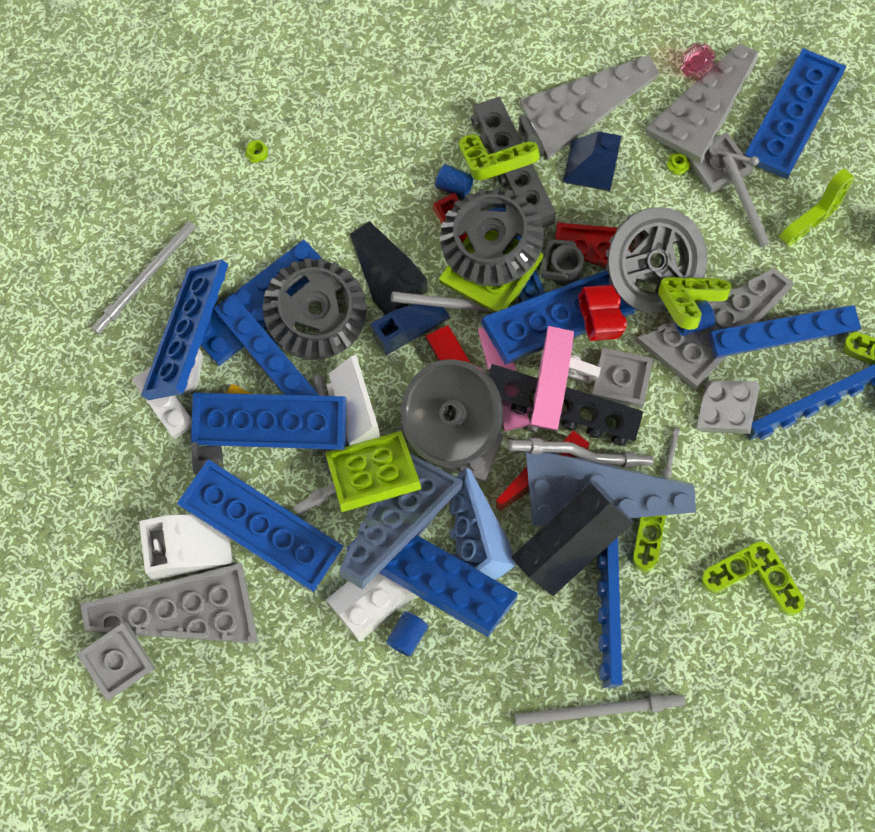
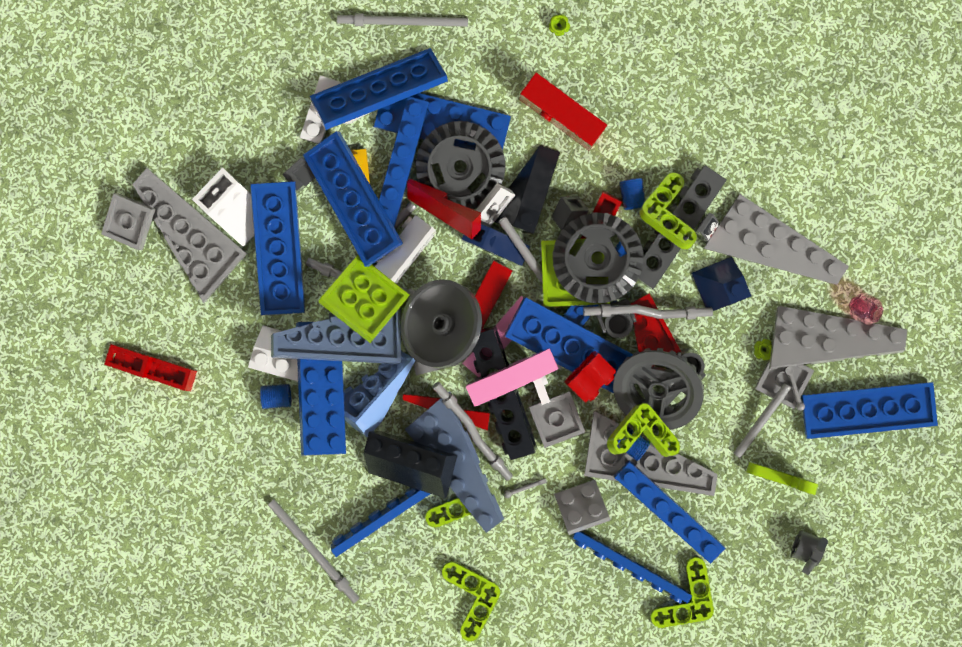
camera: 50 degrees right, 20 degrees up
(281, 749) = (150, 368): none -> red slope
(335, 188) = (562, 111): none -> red brick
(338, 343) = (435, 202): none -> red slope
(372, 298) = (494, 204): none -> white plate
(428, 245) = (568, 209): none -> dark grey panel
(547, 257) = (607, 310): none -> light grey bar

